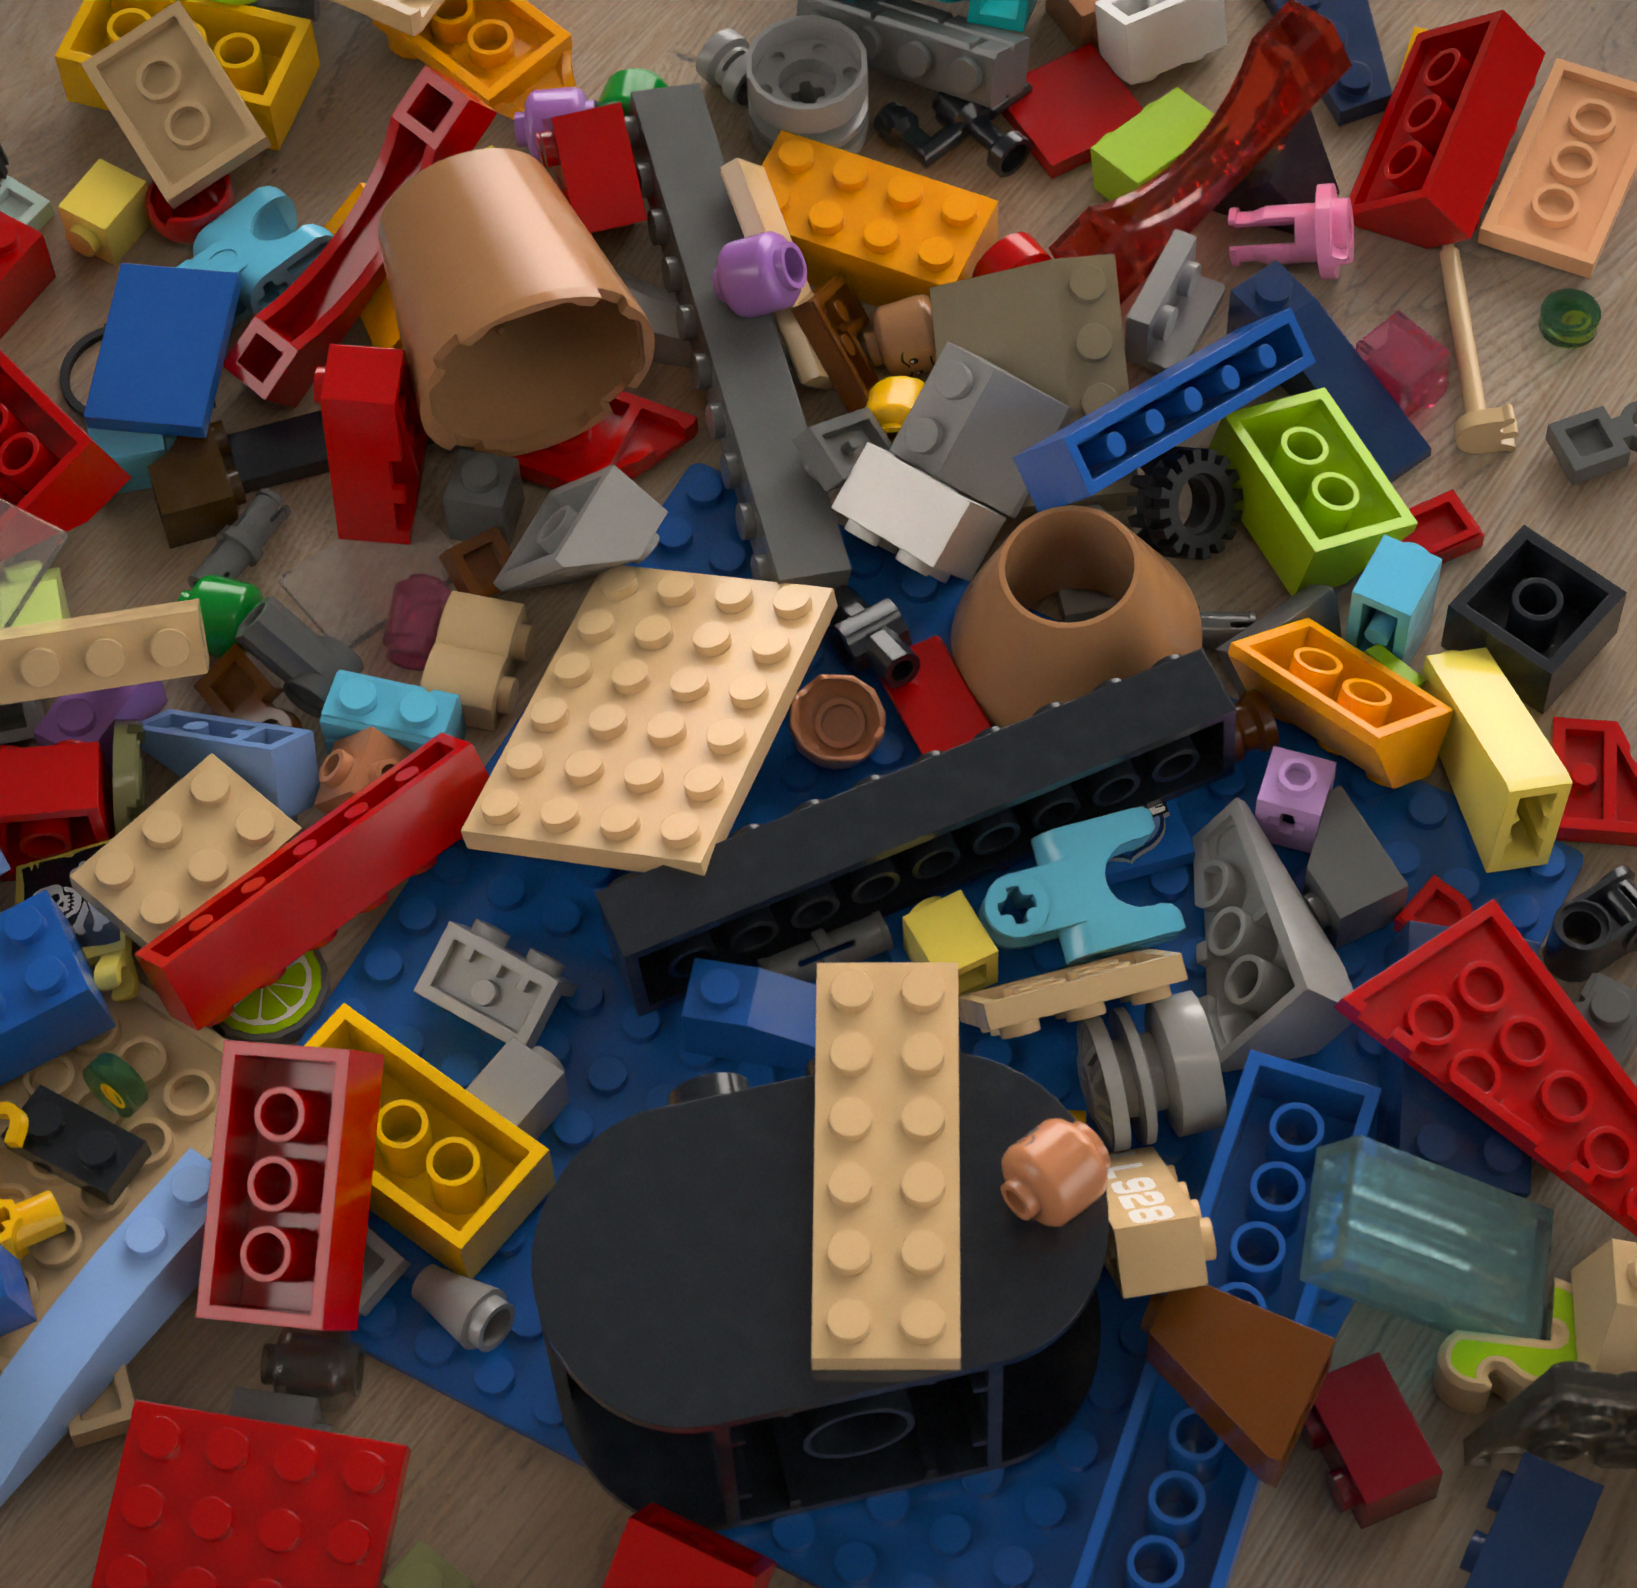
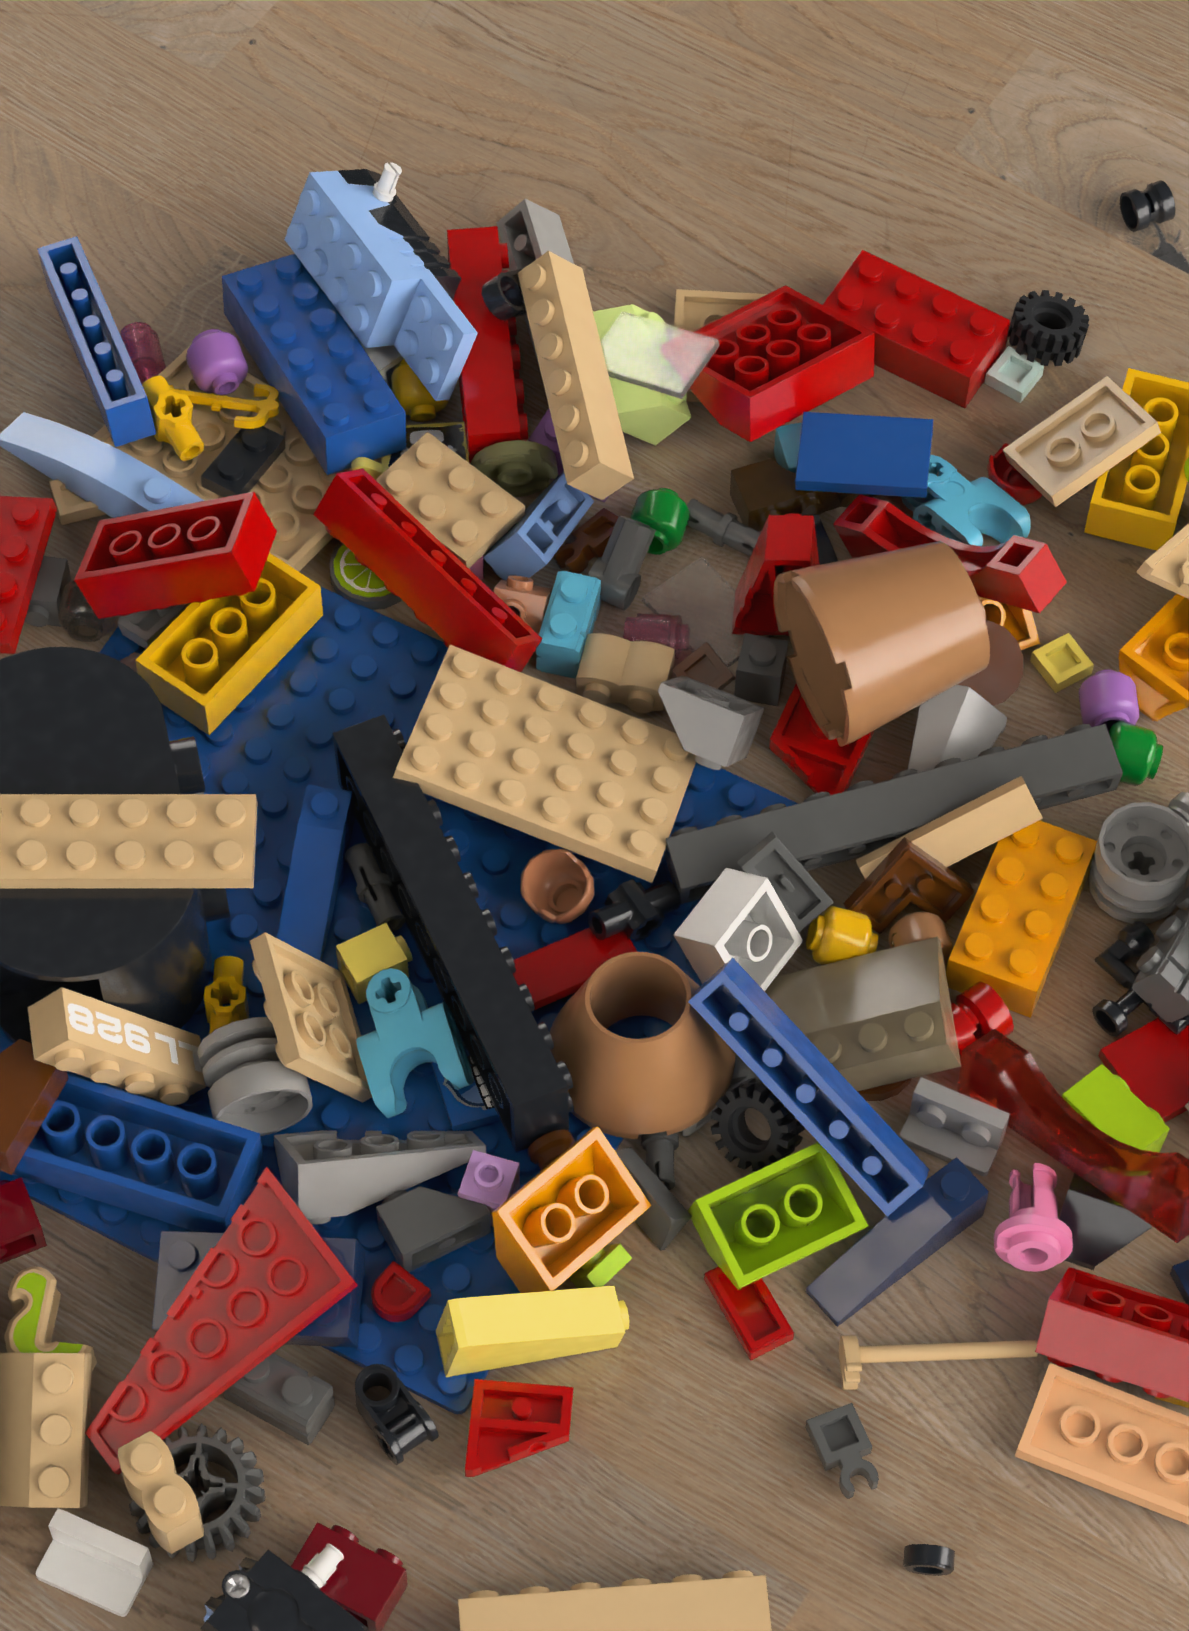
camera: 85 degrees right, 0 degrees up
(105, 212) = (1006, 419): light yellow brick -> none
(115, 1084) = (279, 475): clear green tile -> none
(493, 984) = (358, 687): light grey bracket -> none
(523, 1086) = (267, 704): light grey brick -> none
(594, 166) = (1032, 699): red piece -> none
(759, 274) = (921, 805): medium lavender head -> none
(973, 424) = (812, 968): light grey slope -> none
(1055, 1172) = (85, 933): nougat head -> none
(1394, 599) = (661, 1266): medium azure brick -> none
(1407, 362) = (908, 1297): clear pink brick -> none
(1425, 1241) = (105, 1250): clear light blue brick -> none
(1536, 616) = (657, 1373): black brick -> none
(1569, 318) = (973, 1437): clear green tile -> none

